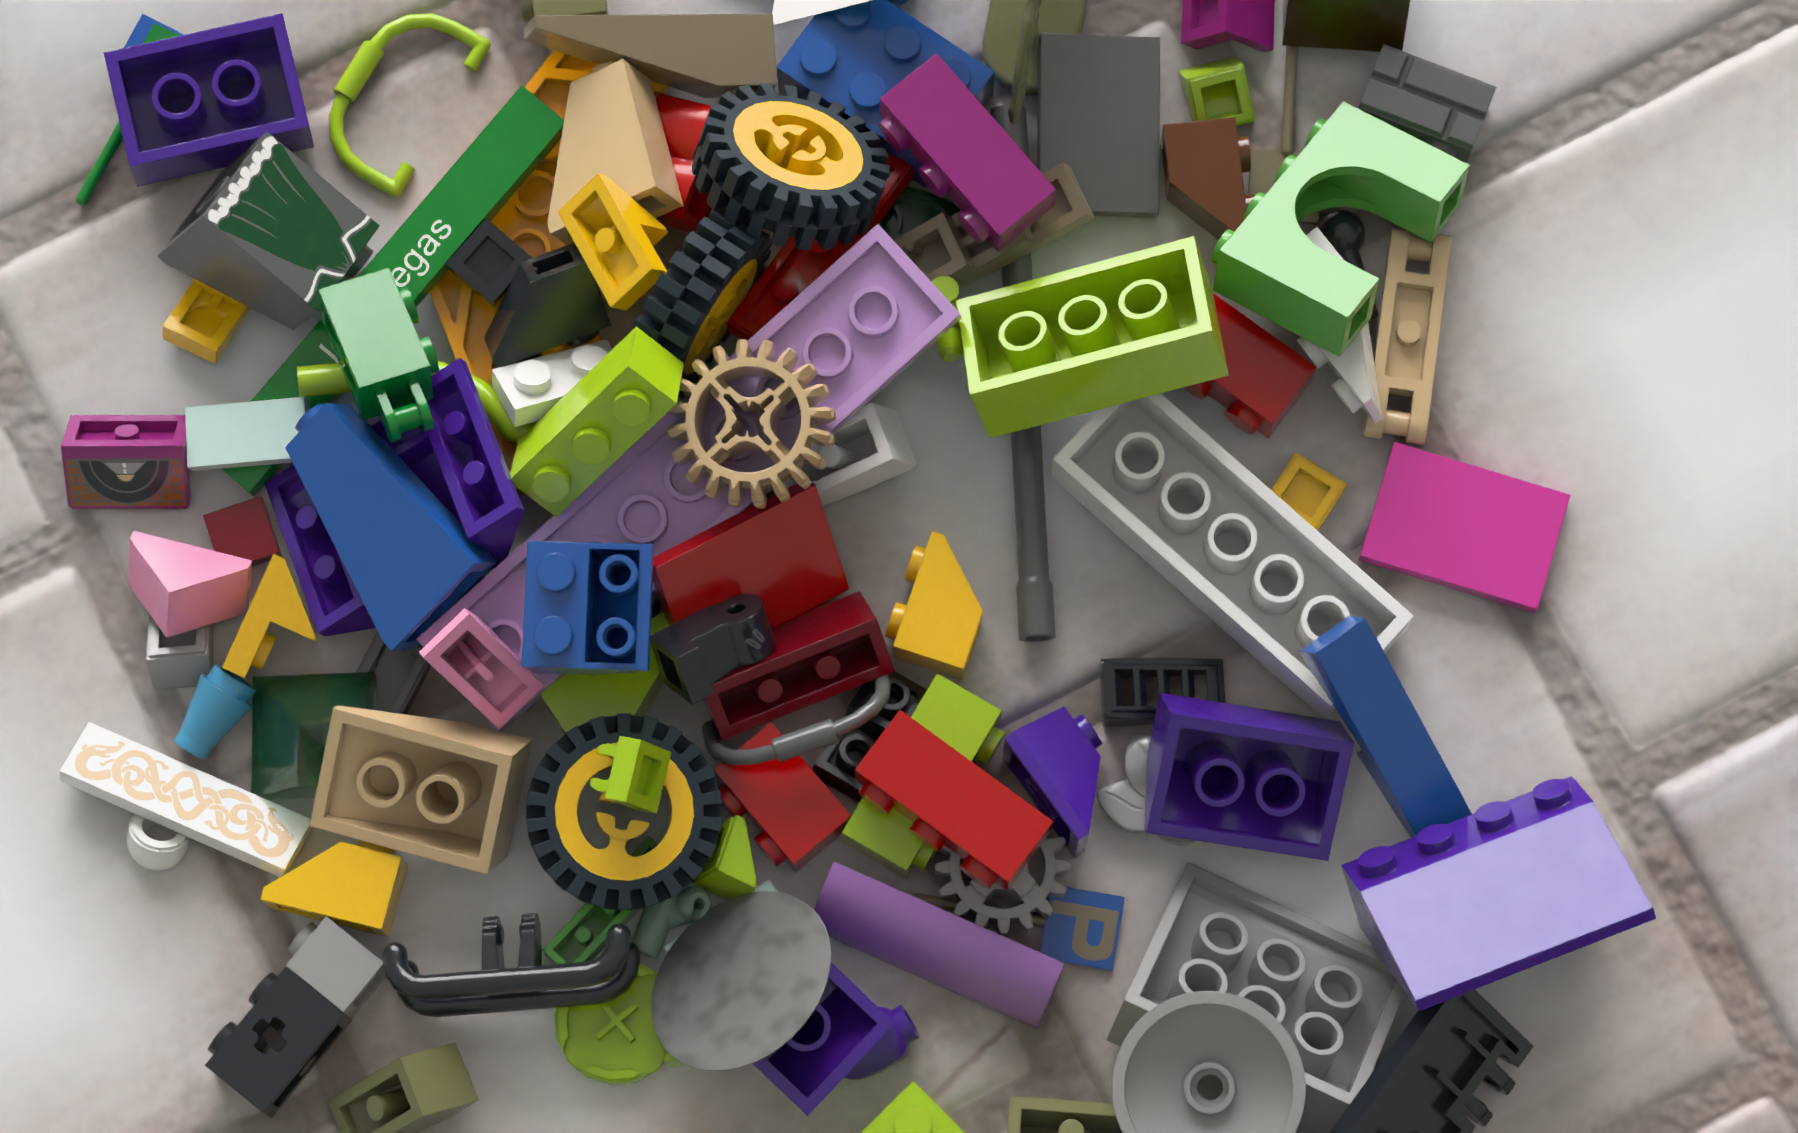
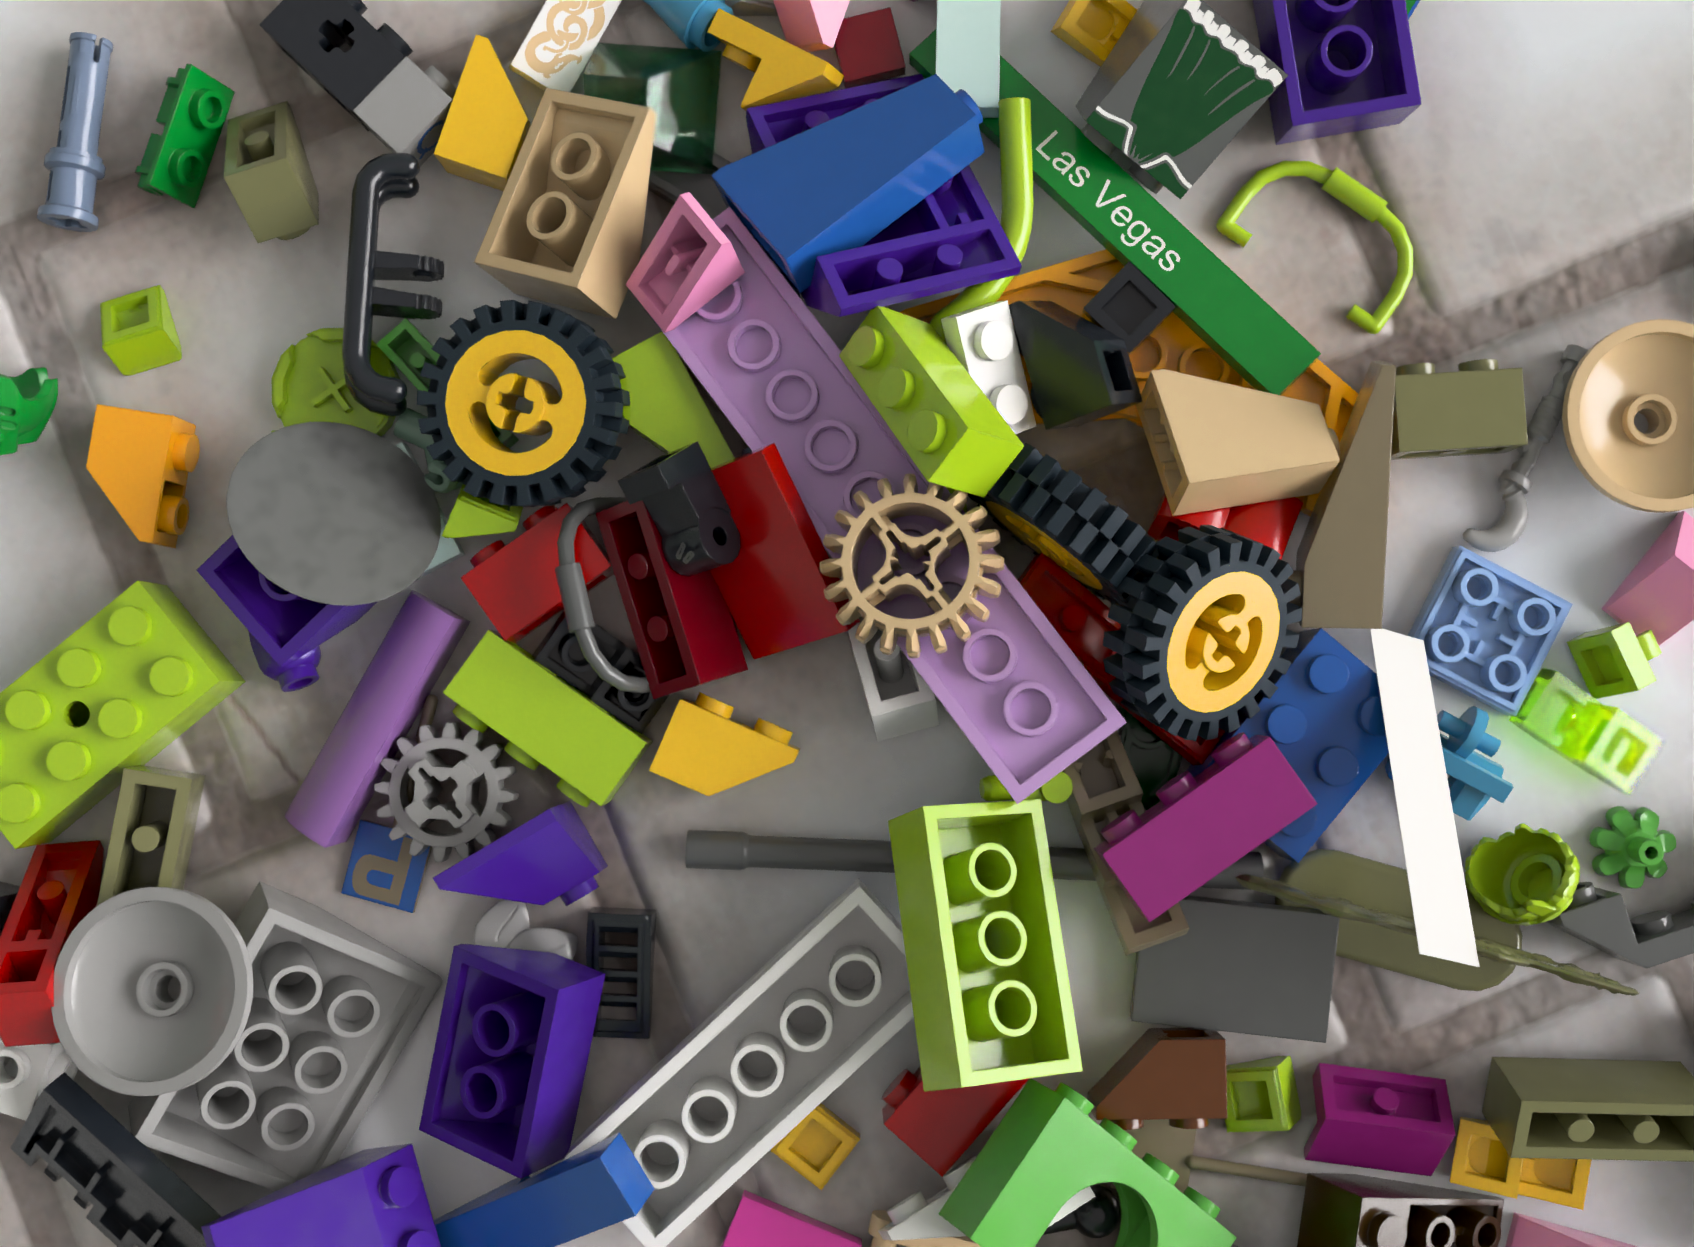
camera: 90 degrees right, 10 degrees up
(381, 351) = (1033, 180): brick -> none
(587, 608) = (728, 375): blue slope -> none
(615, 240) = (1131, 435): yellow slope -> none
(635, 774) = (538, 412): lime tile -> none
(951, 802) = (494, 746): red brick -> none

